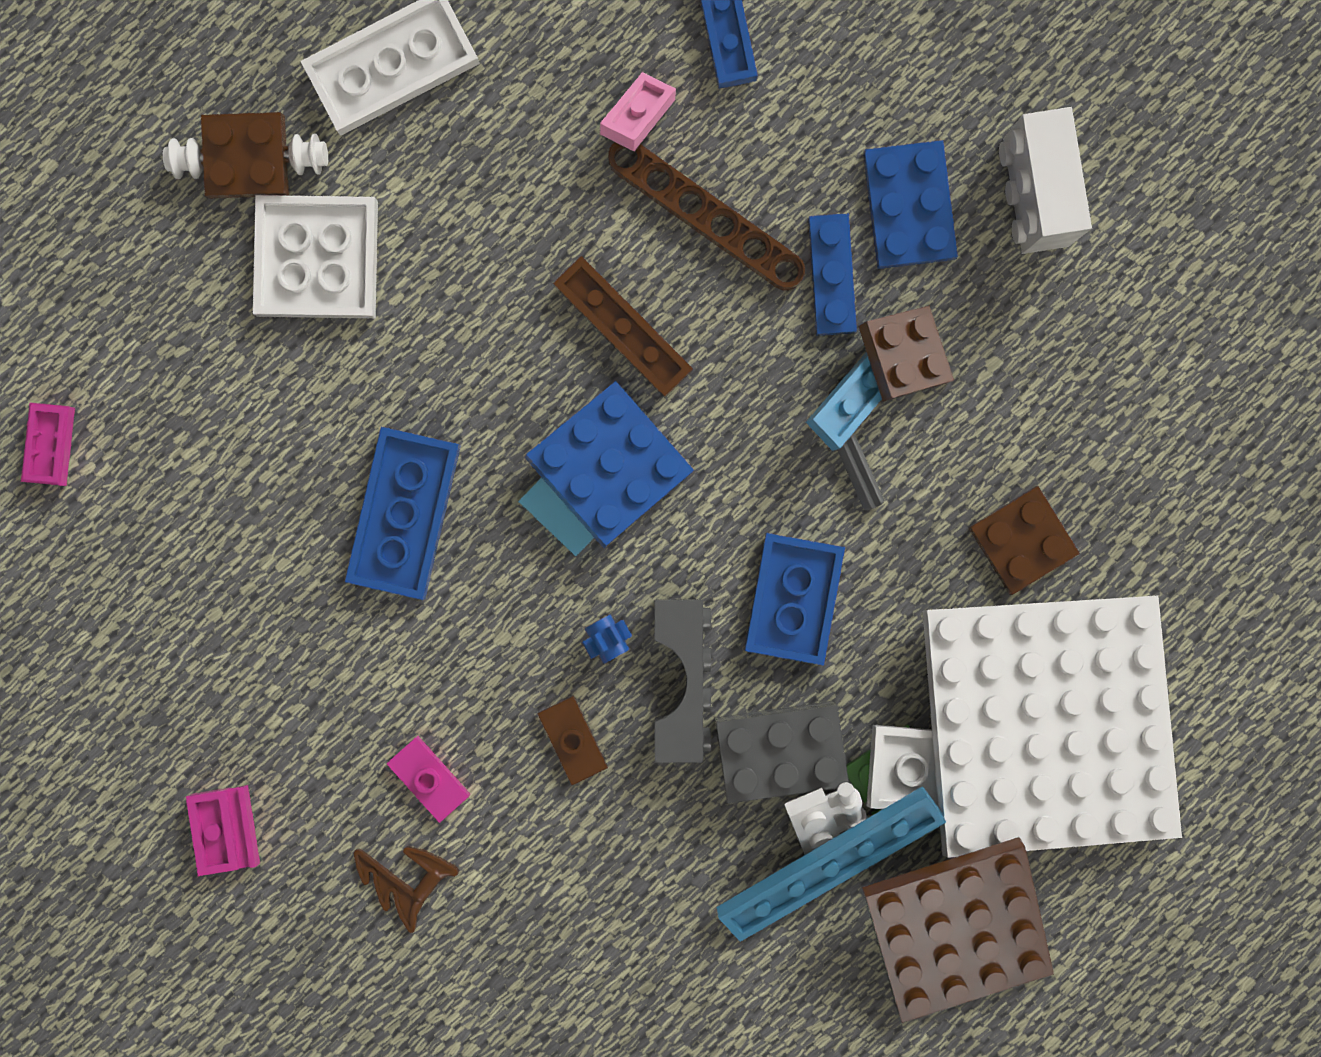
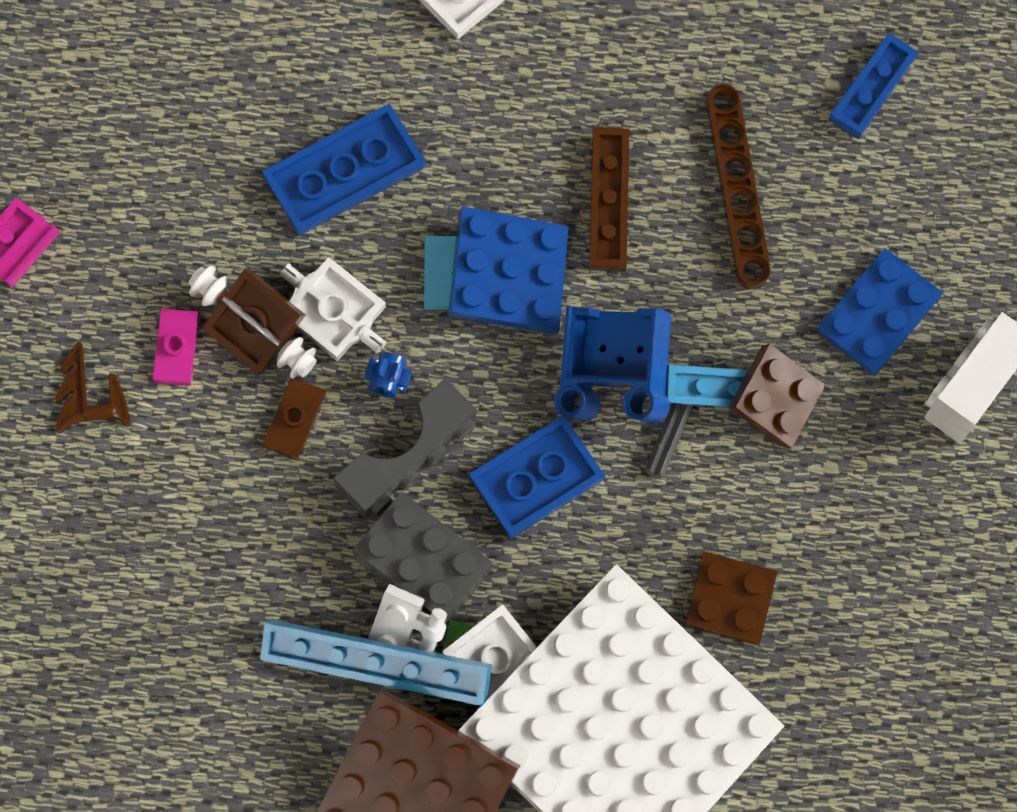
camera: 40 degrees right, 15 degrees down
(465, 705) = (253, 321): none -> reddish brown plate
(511, 630) = (336, 308): none -> white plate
(637, 111) = (759, 79): bright pink plate -> none
(763, 448) = (615, 352): none -> blue piece
(832, 274) = (781, 303): blue plate -> none

